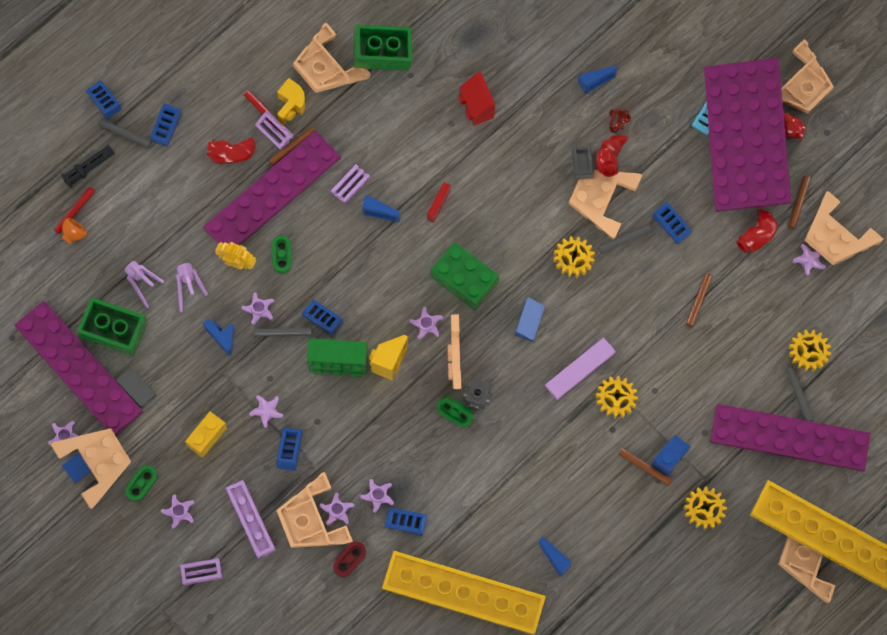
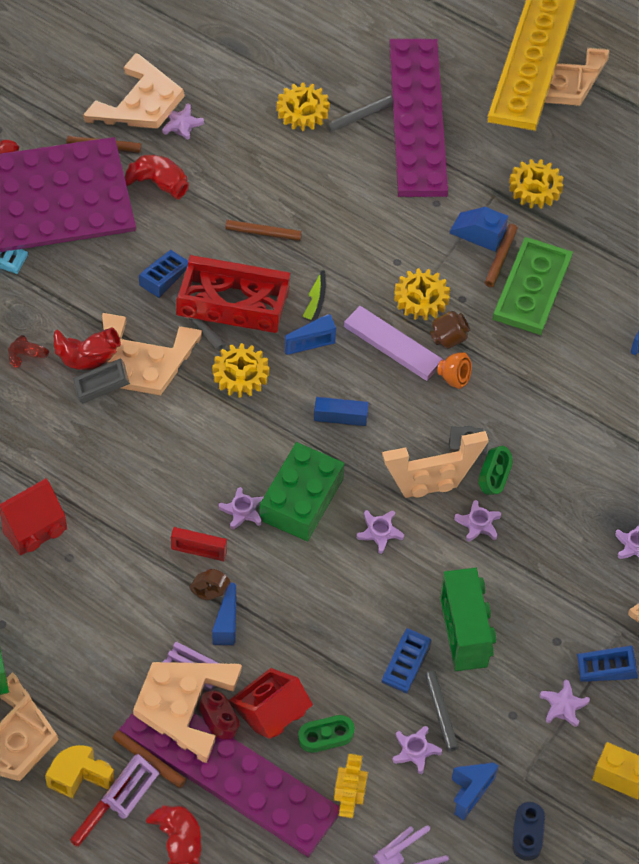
camera: 105 degrees left, 15 degrees down
(184, 365) = (528, 829): none -> dark blue plate
(310, 190) = (219, 715): none -> dark red plate
(311, 224) = (271, 702): none -> red slope
(325, 162) = (172, 696): none -> light nougat wing
(388, 357) = (444, 549): yellow slope -> none
(402, 200) = (210, 584): none -> reddish brown beam
(418, 391) = (479, 522): none -> lavender animal
(463, 237) = (242, 509): none -> lavender animal
(544, 405) = (456, 369): none -> orange brick
(580, 408) = (450, 329): none -> reddish brown head
(595, 314) = (311, 336): none -> blue slope
(611, 481) = (532, 286): none -> bright green plate
(634, 327) = (317, 294): none -> sticker
(661, 251) = (221, 275): none -> red fence

